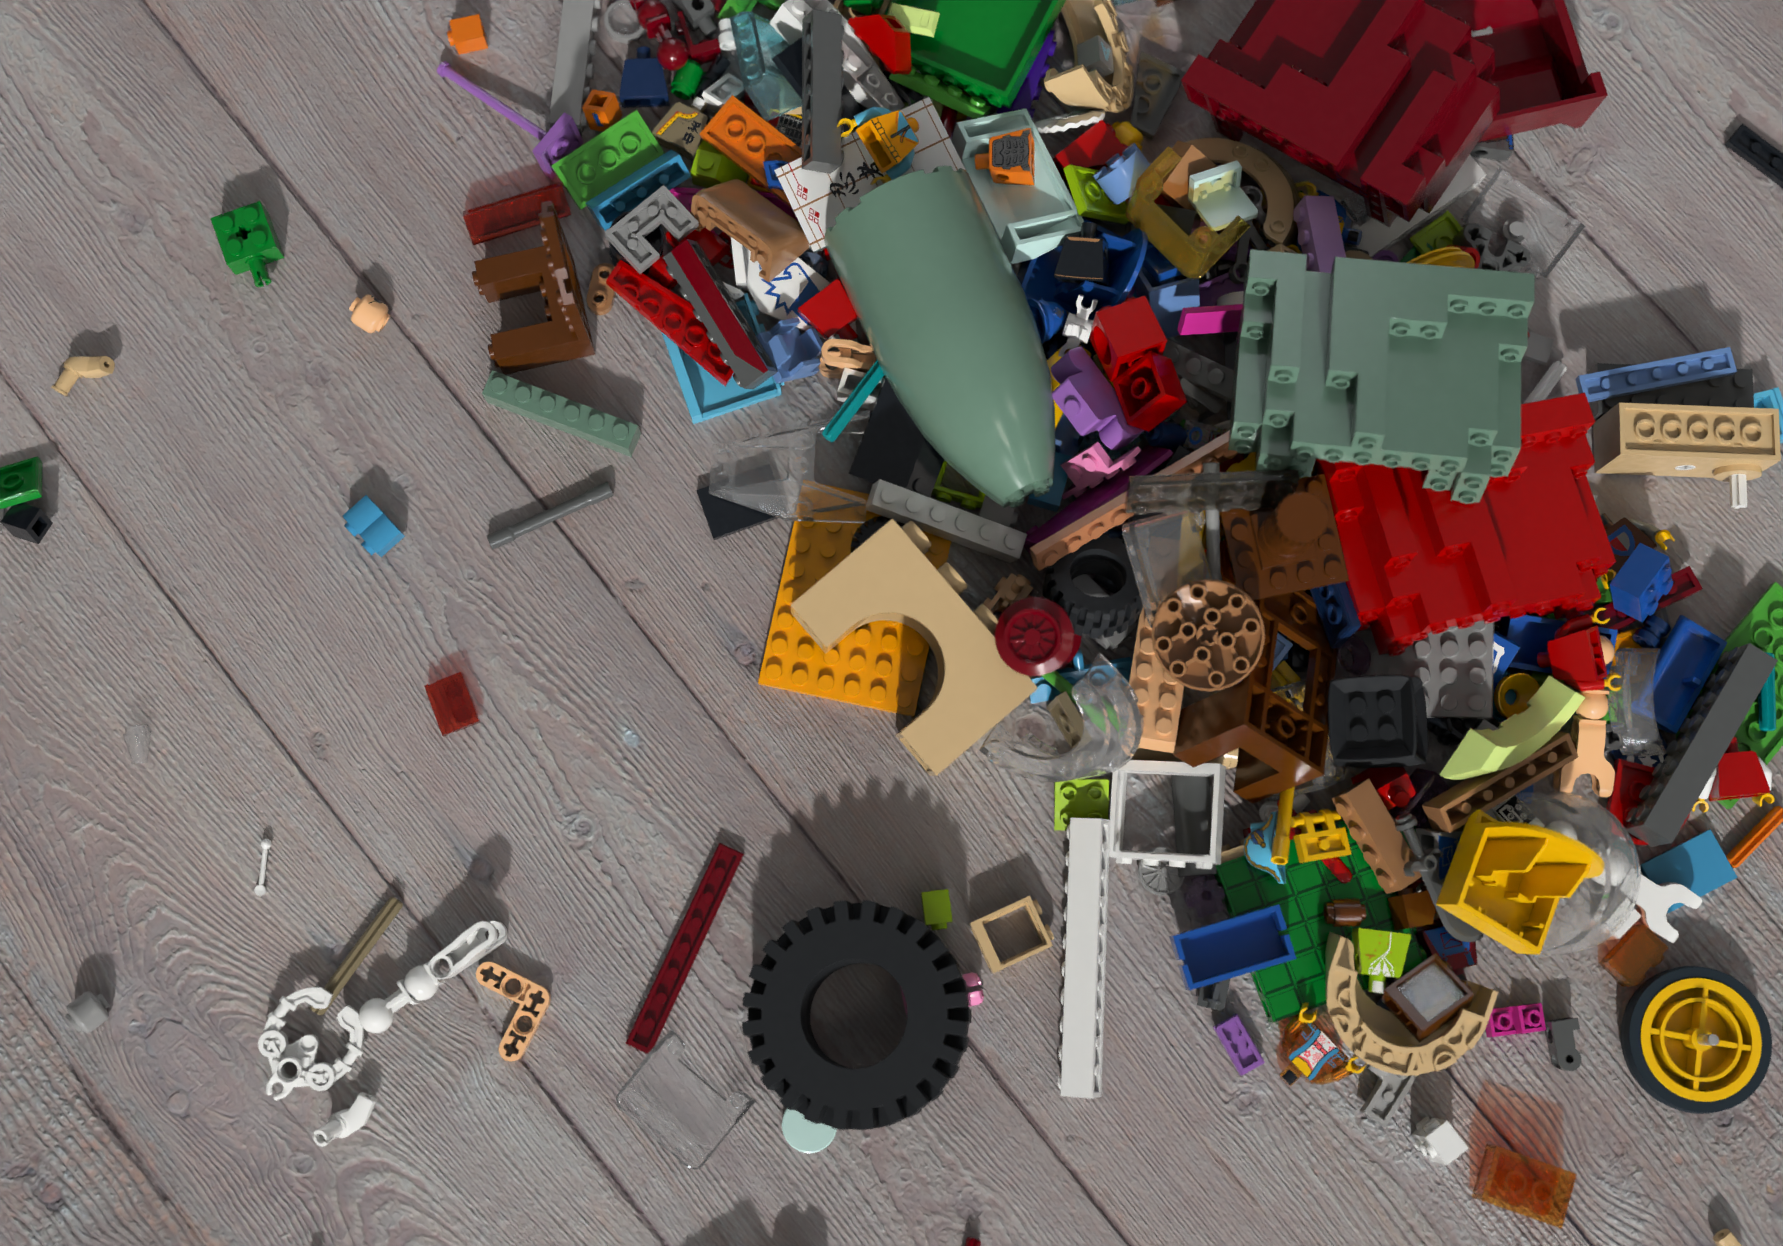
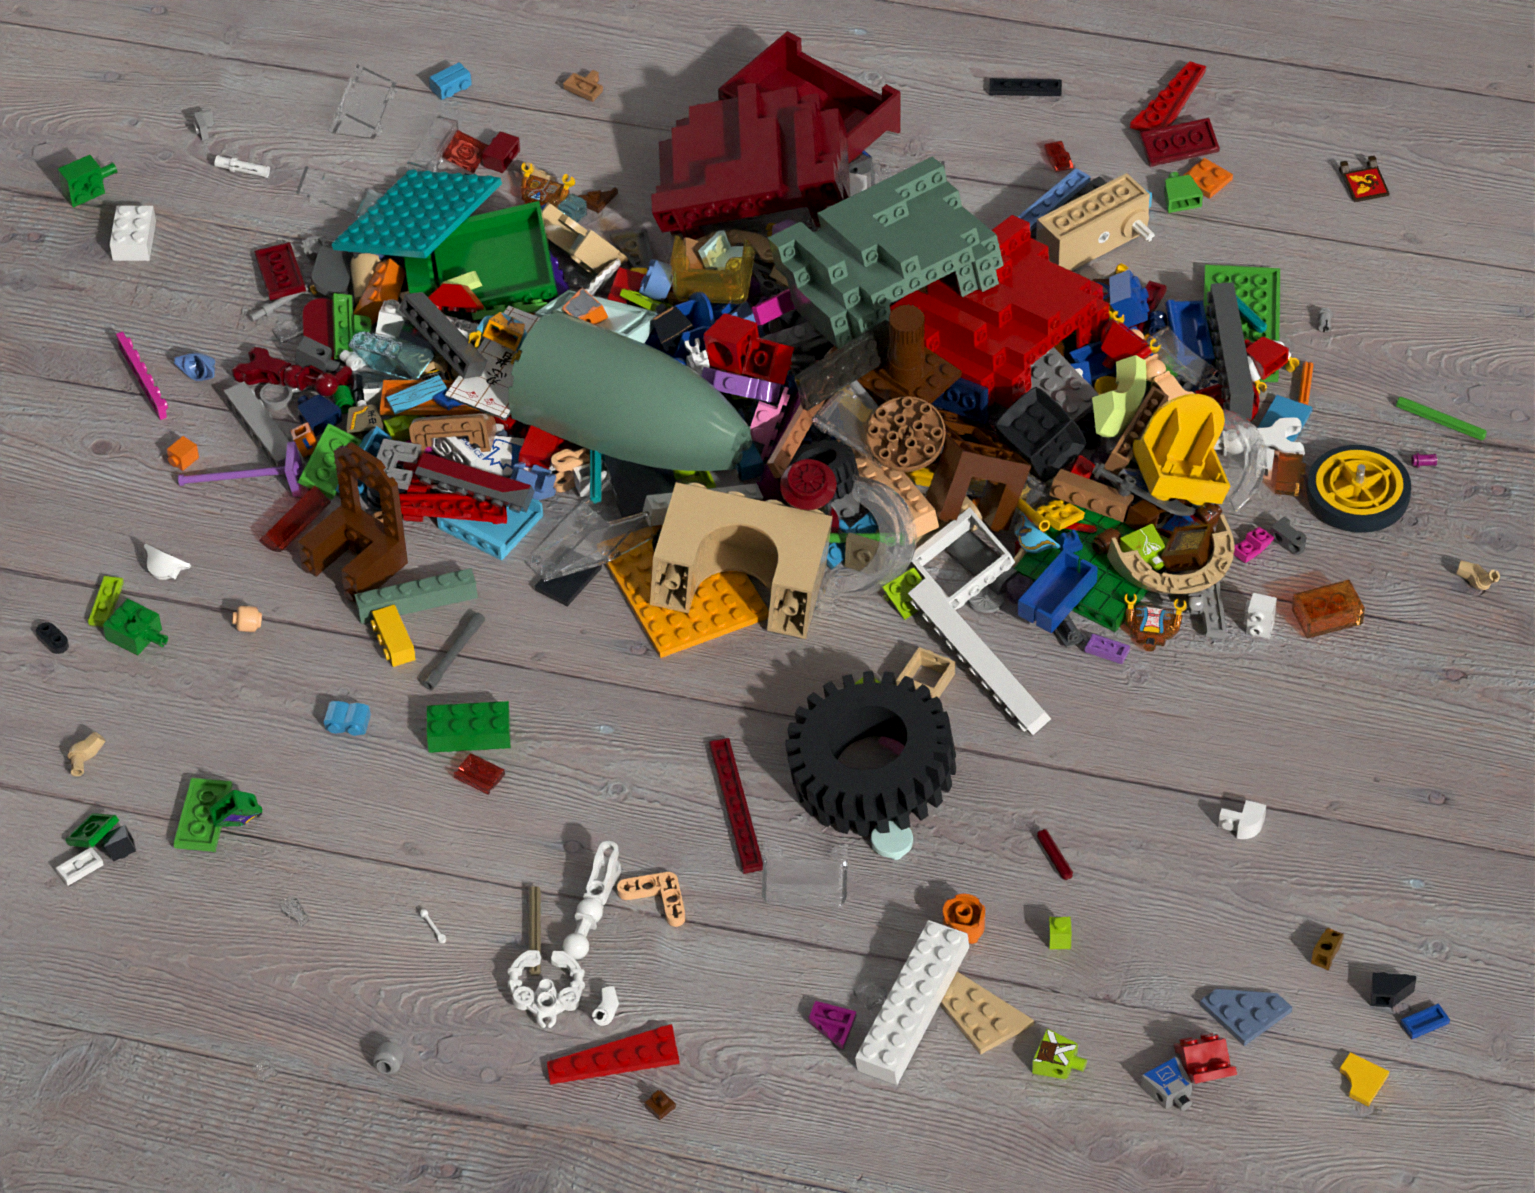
camera: 30 degrees left, 30 degrees down
(140, 544) = (196, 824): none -> bright green plate
(165, 186) = (49, 634): none -> black plate
(166, 572) = (235, 809): none -> green torso
(253, 178) = (105, 600): none -> lime tile
(336, 1195) = (633, 1053): none -> red wing
(339, 174) = (163, 565): none -> white hat
(484, 634) = (468, 726): none -> green brick
(500, 449) = (392, 636): none -> yellow brick
(749, 144) = (416, 394): none -> medium azure tile
(1303, 879) = (1069, 541): none -> blue tile
(1491, 951) = (1208, 513): none -> reddish brown head
(1731, 296) = (1058, 156): none -> clear red slope

